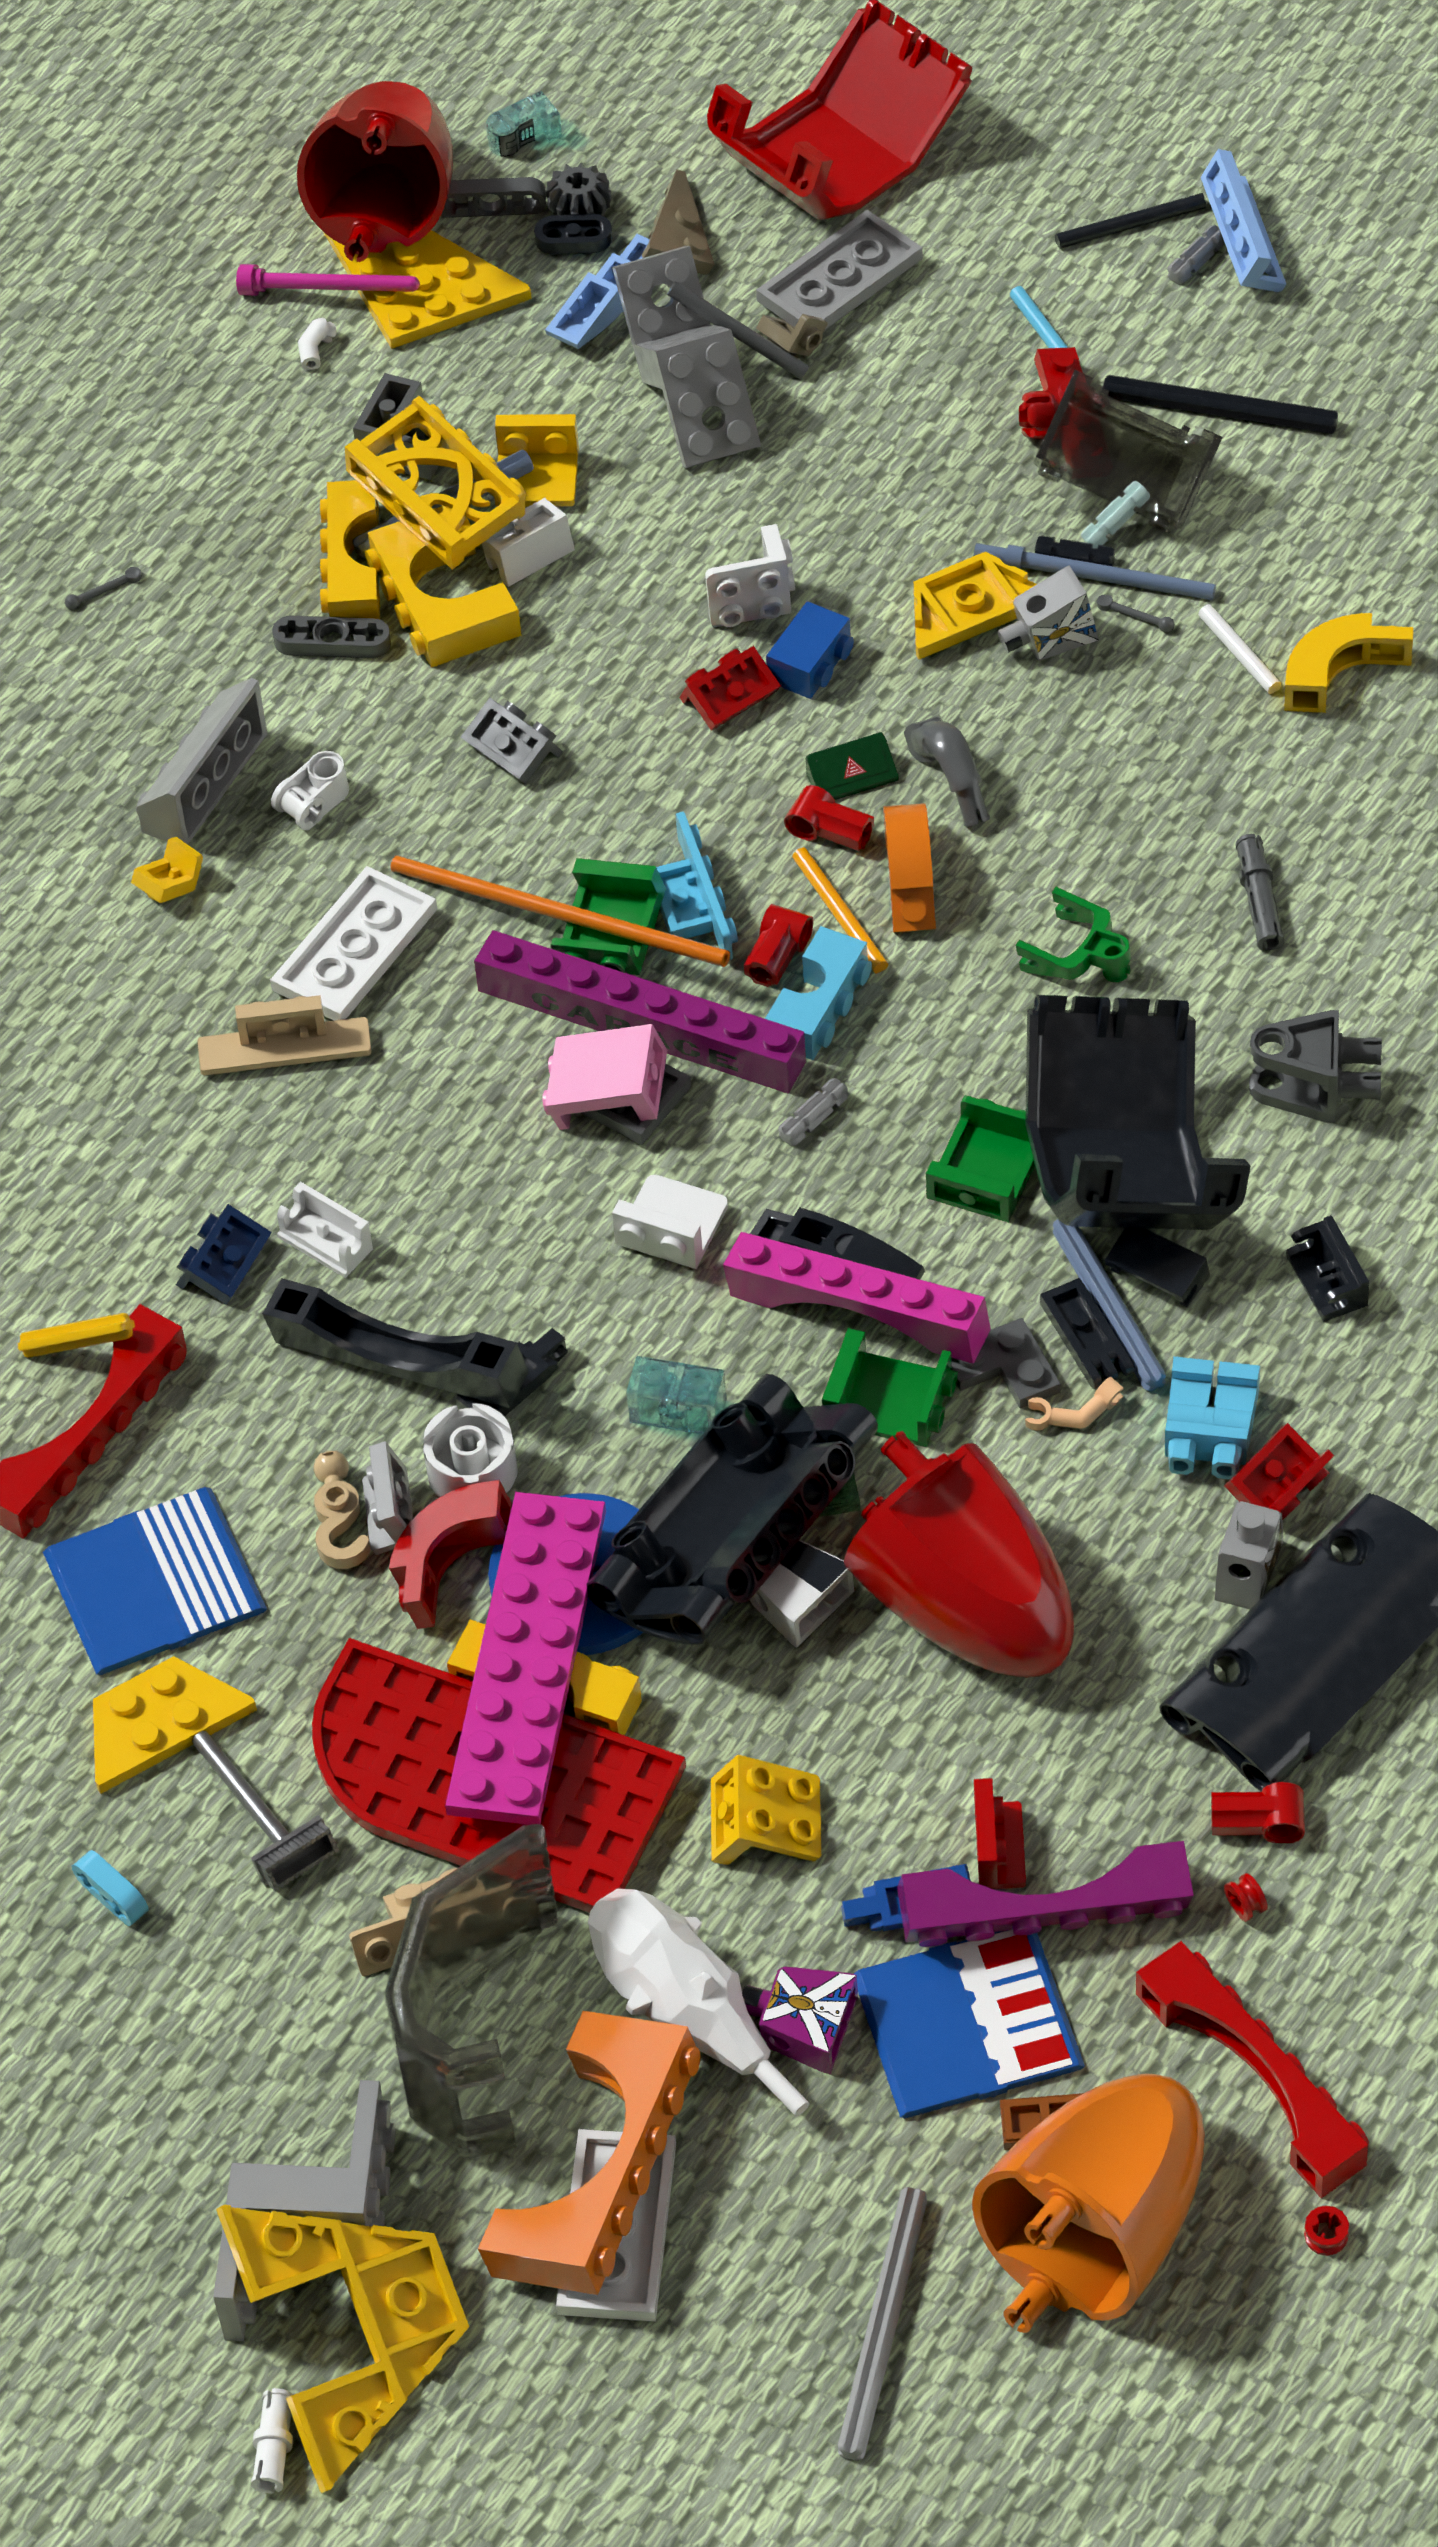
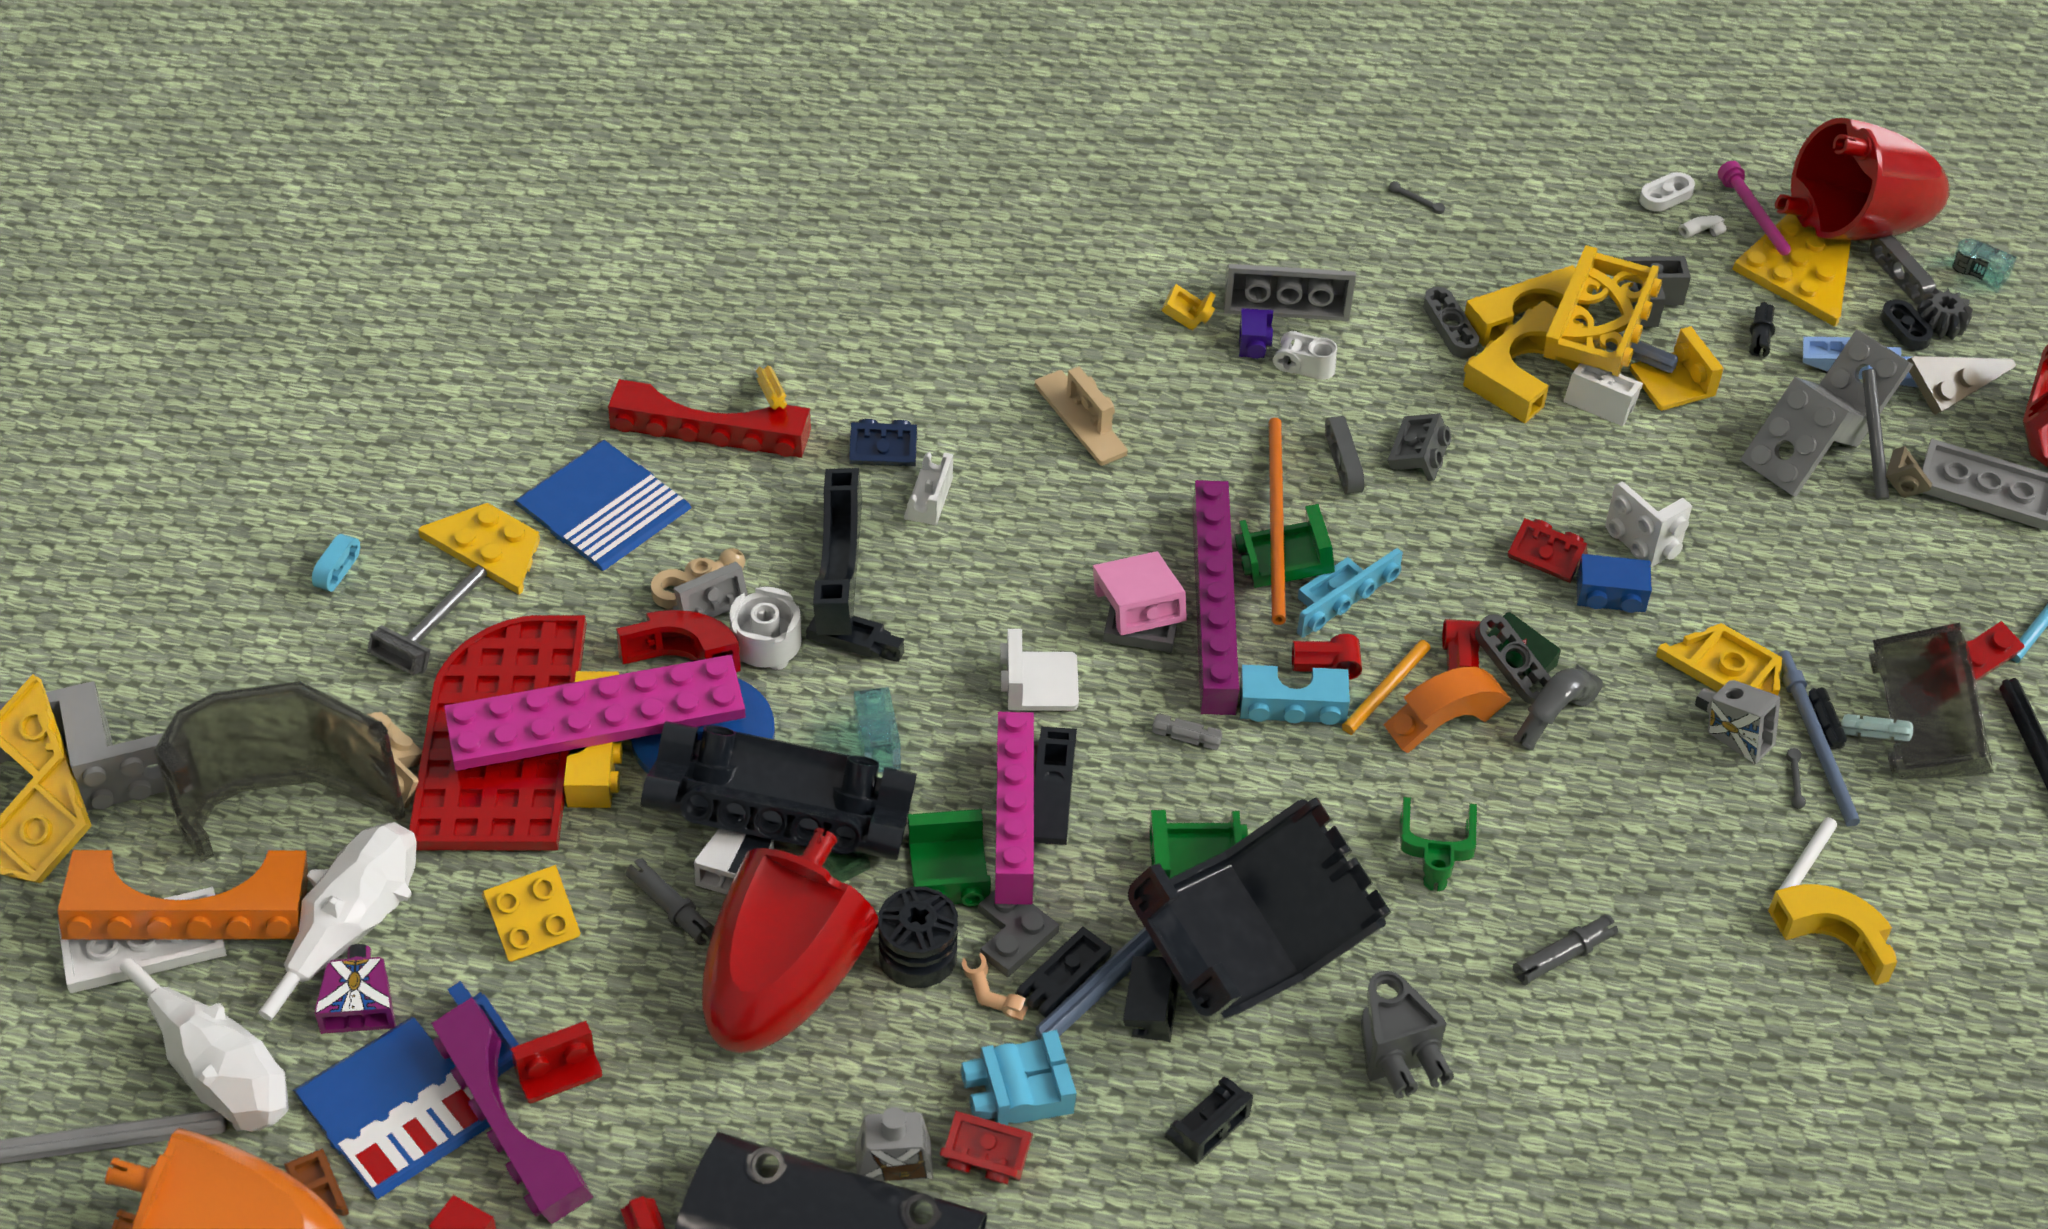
camera: 60 degrees right, 5 degrees down
(242, 350) = (1667, 191): none -> white plate
(250, 827) = (1255, 332): none -> dark purple brick
(355, 943) = (1187, 422): white plate -> none
(507, 361) = (1762, 330): none -> black axle
(513, 817) = (1344, 454): none -> dark grey beam
(819, 1671) = (680, 910): none -> dark grey pin
(838, 2167) = (216, 1056): none -> white piece
(889, 767) = (1516, 644): none -> dark grey beam
(1002, 1426) = (918, 937): none -> black wheel

